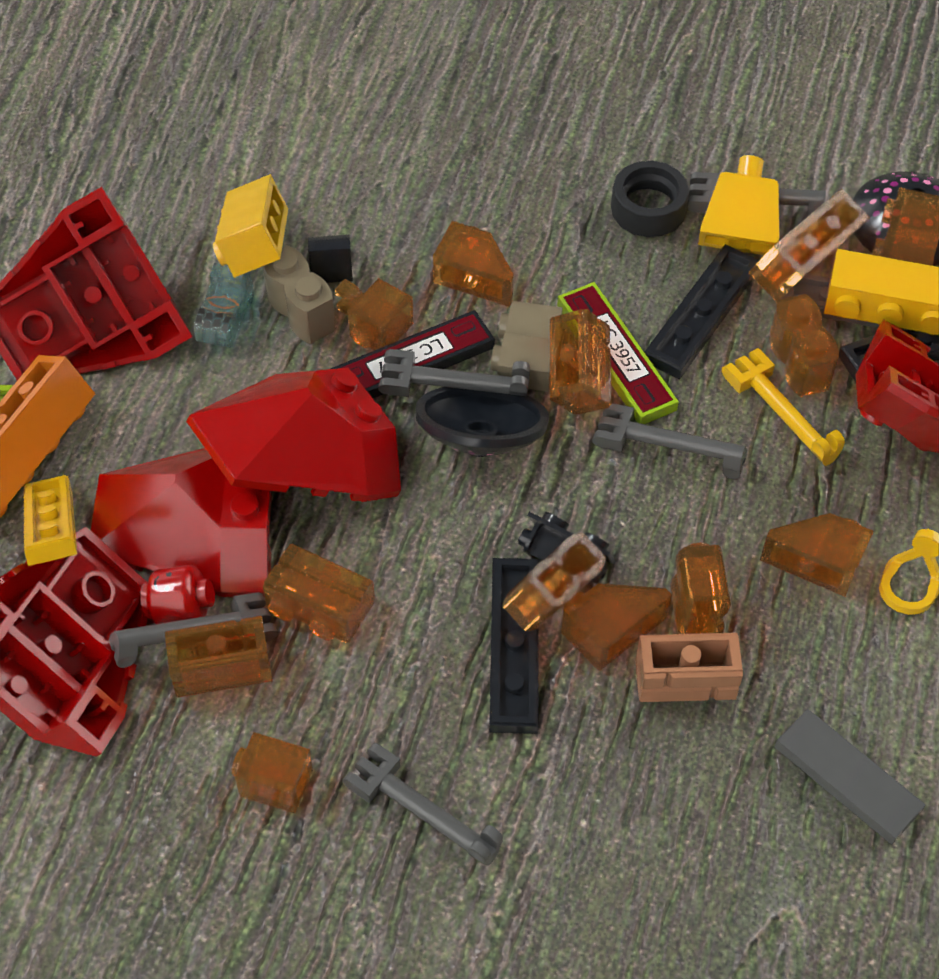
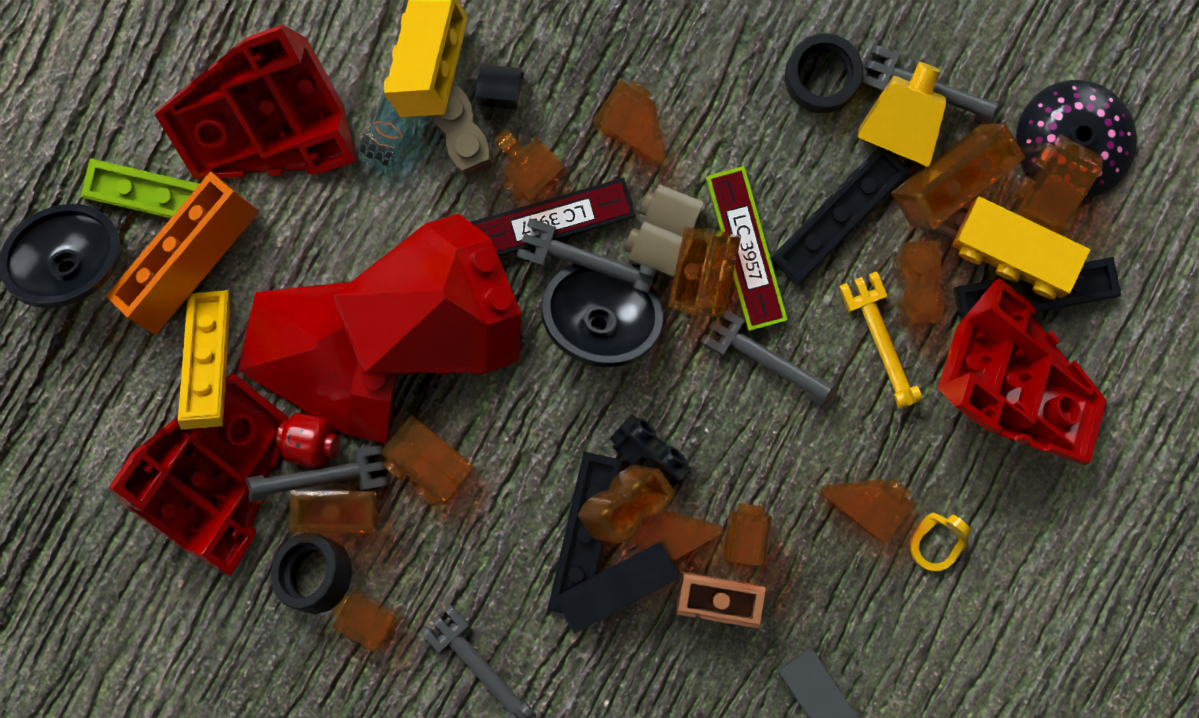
camera: 15 degrees right, 30 degrees up
(217, 744) = (286, 568): none -> black tyre
(567, 670) = (618, 586): none -> black tile

